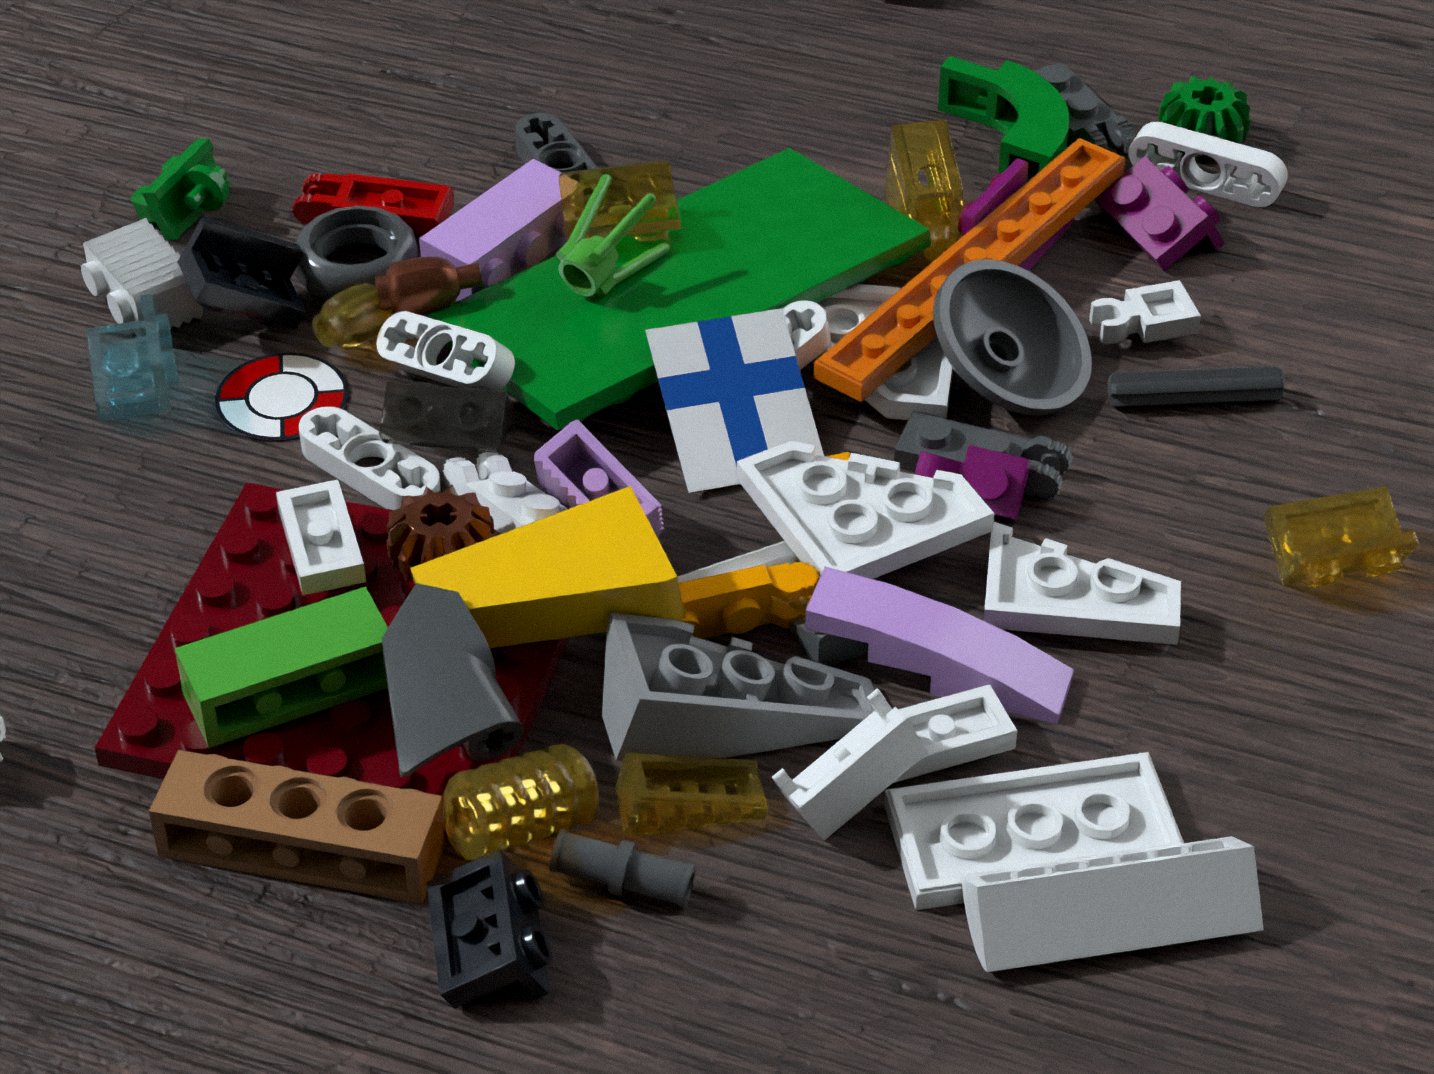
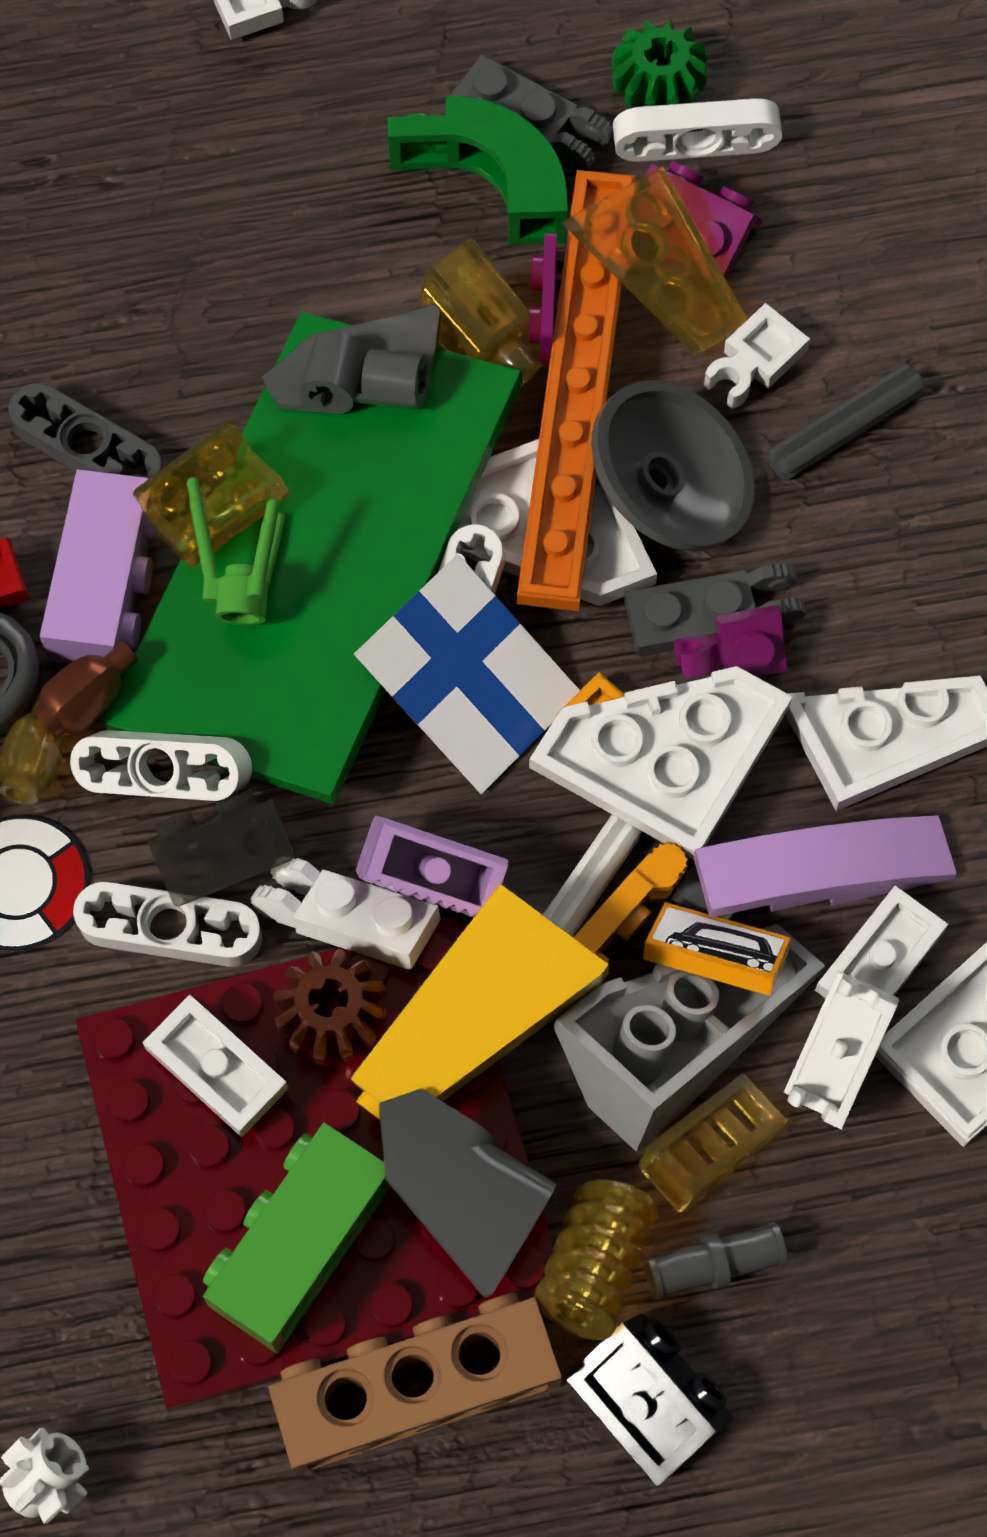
camera: 30 degrees left, 25 degrees up
(794, 649) = (717, 948): none -> tile
(814, 186) = (363, 363): none -> dark grey panel
(1104, 207) = (661, 259): none -> clear yellow wing

